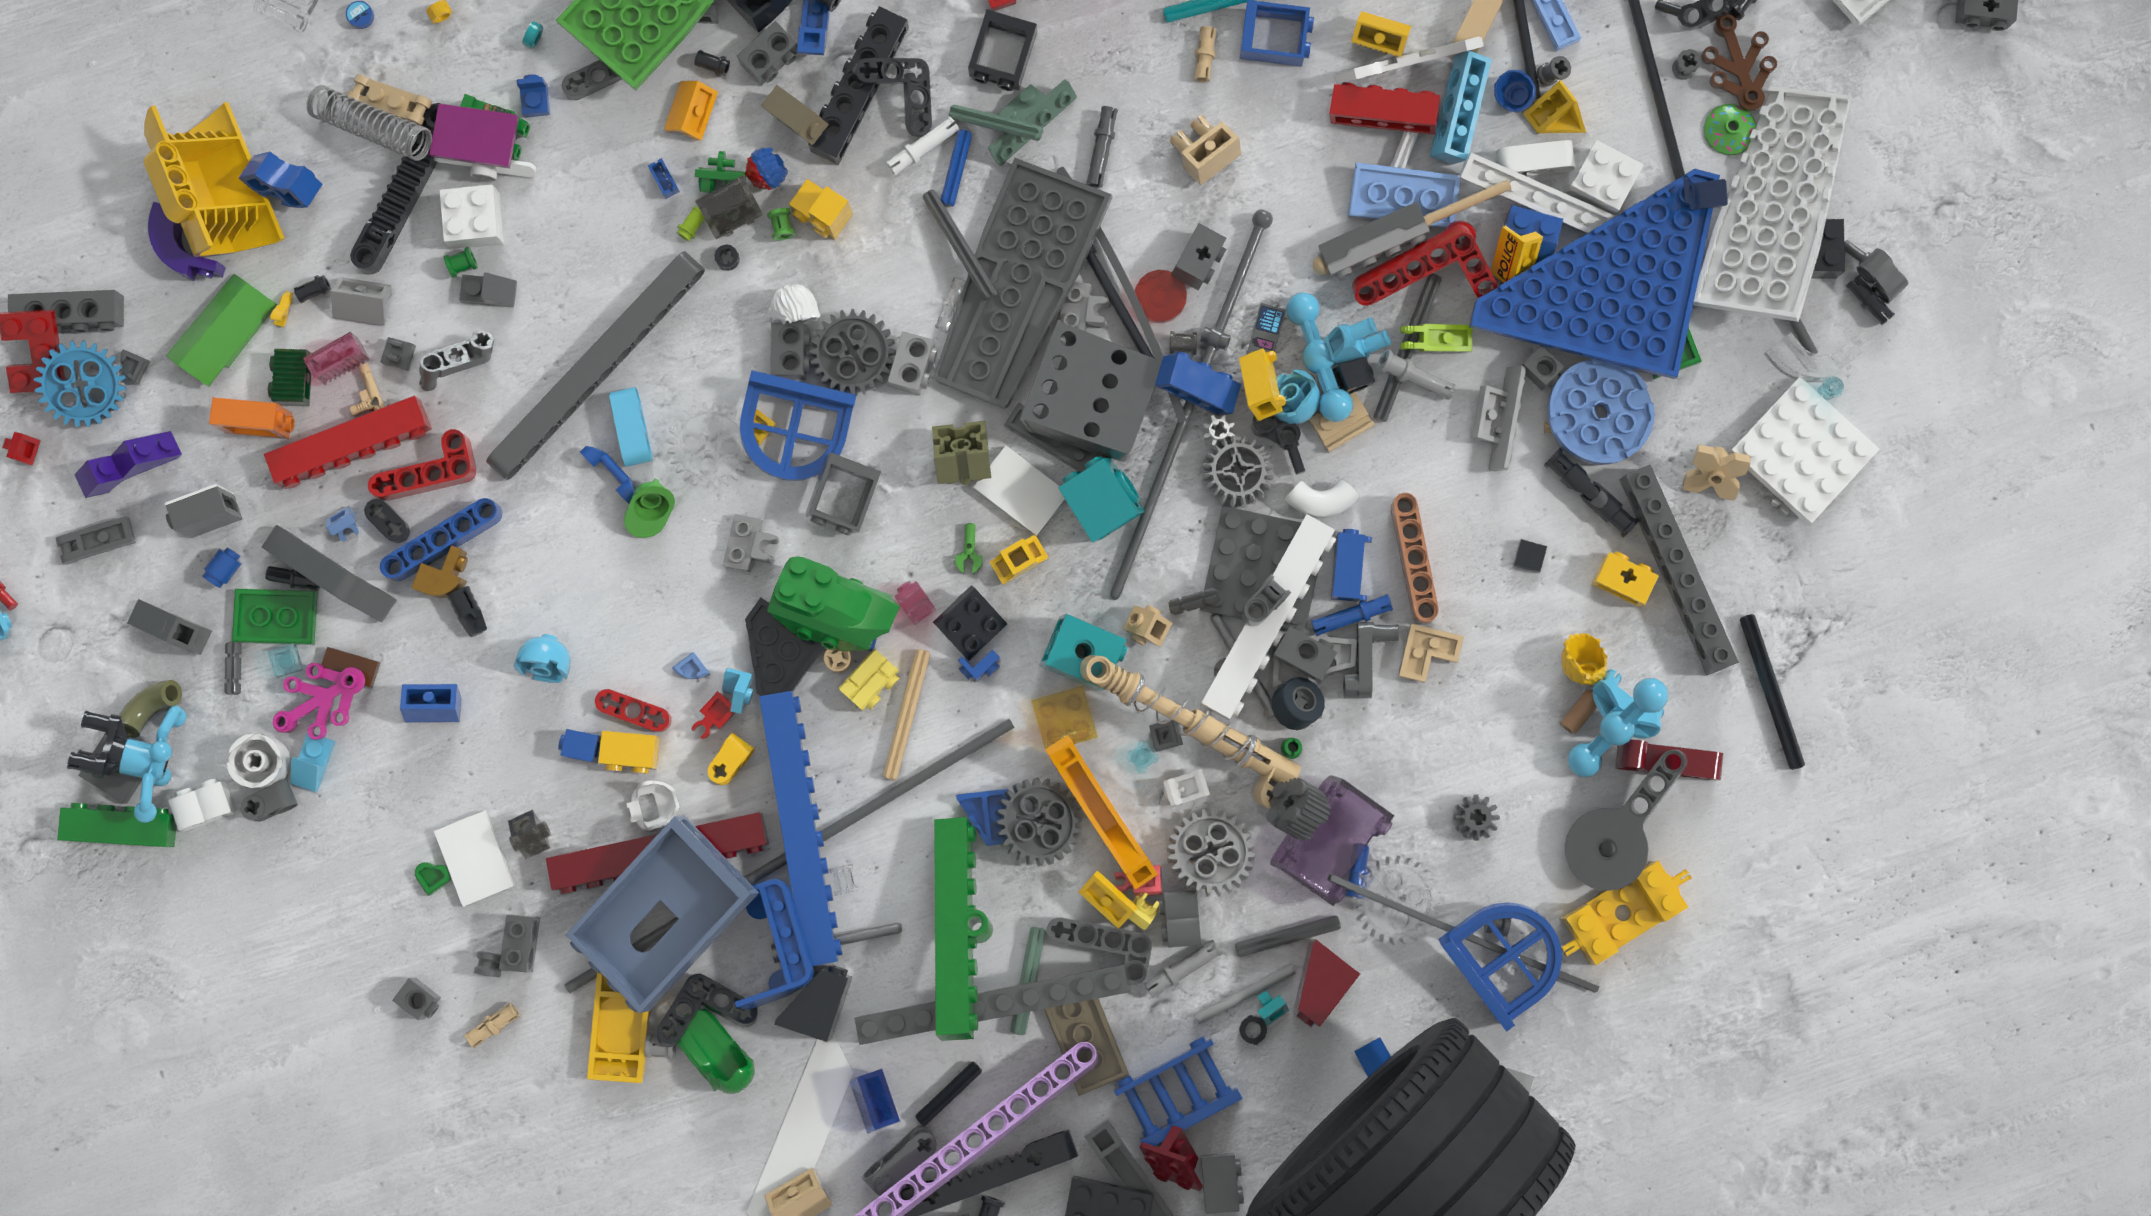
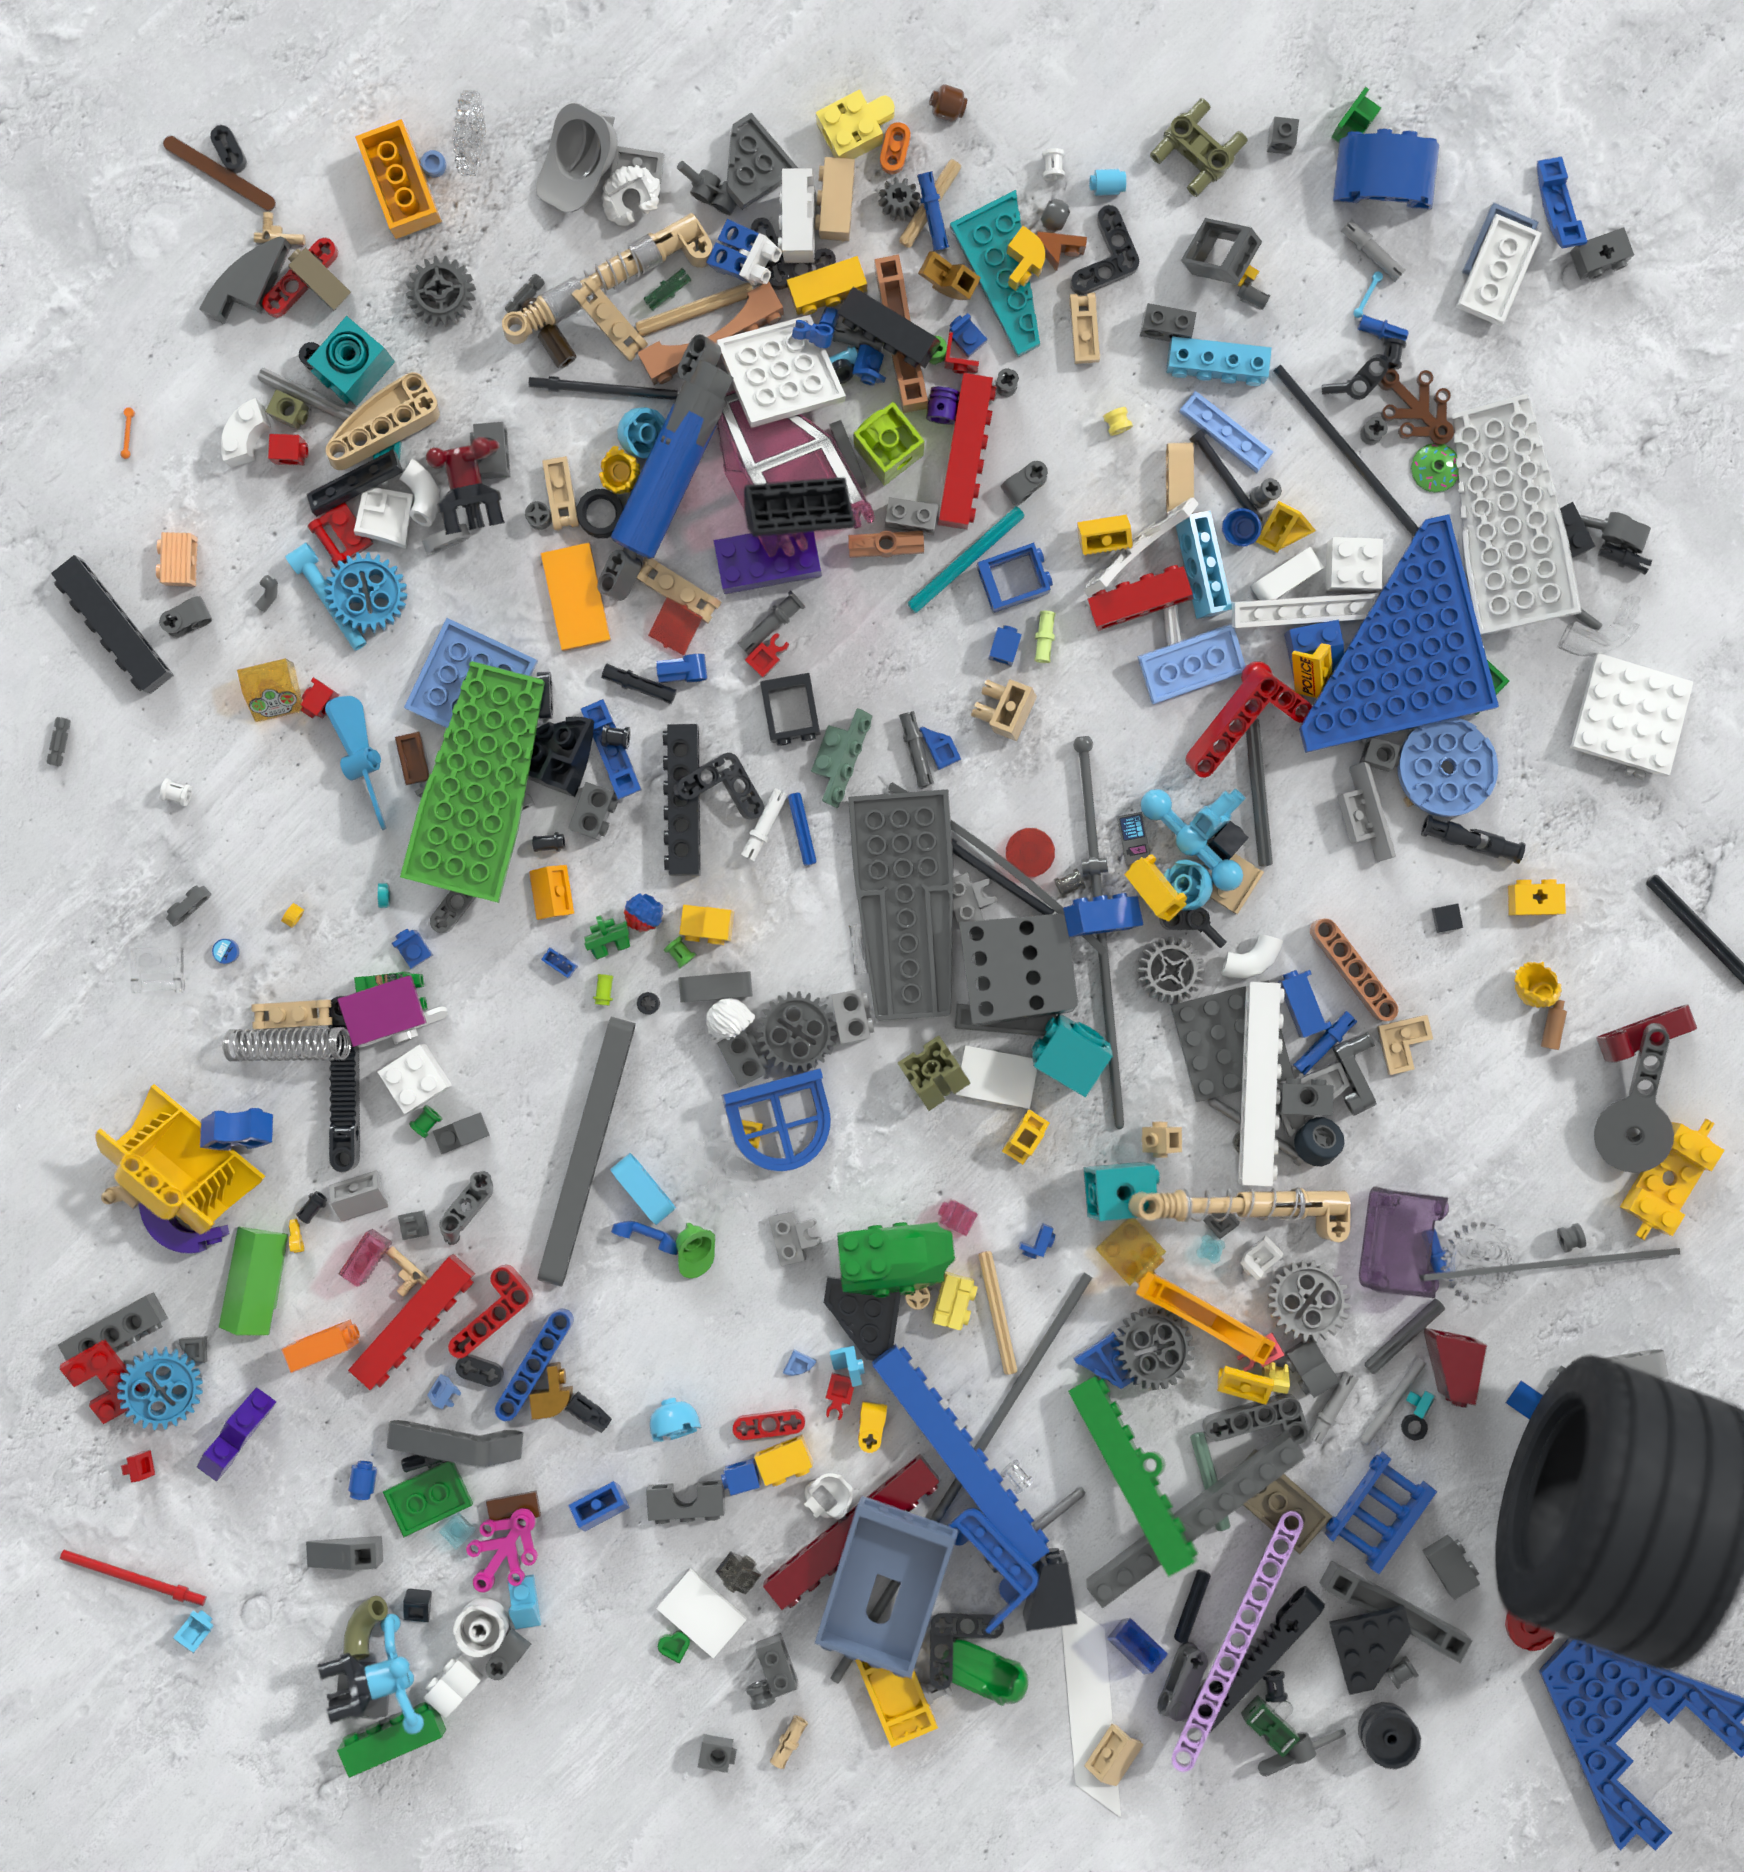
camera: 25 degrees left, 5 degrees up
(96, 540) = (244, 1510): dark grey plate -> none
(141, 188) = (118, 1194): none -> tan arm
(202, 511) = (322, 1444): dark grey piece -> none
(209, 713) = (417, 1605): none -> black slope
(233, 668) = (416, 1559): dark grey axle -> none
(290, 378) = (334, 1292): dark green brick -> none
(493, 733) = (664, 1505): none -> dark grey arch
(729, 208) = (630, 962): clear smoke brick -> none
(794, 115) = (644, 855): dark tan brick -> none
(797, 270) = (715, 986): none -> dark grey beam
(853, 468) = (866, 1183): dark grey window -> none
(959, 245) = (840, 895): dark grey axle -> none
(969, 550) = (979, 1148): bright green bar -> none
(970, 623) = (1013, 1211): black plate -> none
(996, 122) = (818, 775): sand green axle -> none
(1126, 158) = (941, 748): none -> blue tile
(1173, 1160) = (1407, 1570): dark red bracket -> none
(1194, 601) = (1189, 1098): dark grey axle -> none
(1203, 243) = (1041, 817): dark grey brick -> none
(1205, 54) = (962, 625): tan pin -> none
(1214, 425) = (1133, 950): white gear -> none
(1234, 91) = (1005, 645): none -> blue brick
(1267, 598) = (1254, 1073): dark grey piece -> none
(1277, 102) = (1044, 636): none -> yellowish green pin
(1285, 751) = (1327, 1175): green pin -> none
(1298, 808) = (1366, 1233): dark grey brick -> none
(1389, 235) = (1198, 705): piece -> none
(1405, 370) = (1270, 815): light grey pin -> none
(1439, 338) = (1282, 772): lime hinge -> none
(1470, 825) = (1502, 1158): dark grey gear -> none
(1479, 977) = (1579, 1292): blue window -> none
(1622, 719) = (1596, 1021): medium azure connector -> none
(1678, 570) = (1578, 869): dark grey brick -> none
(1705, 194) = (1448, 538): dark blue bracket -> none
(1718, 470) = (1569, 769): tan plant -> none
(1836, 391) = (1629, 651): clear light blue pin -> none

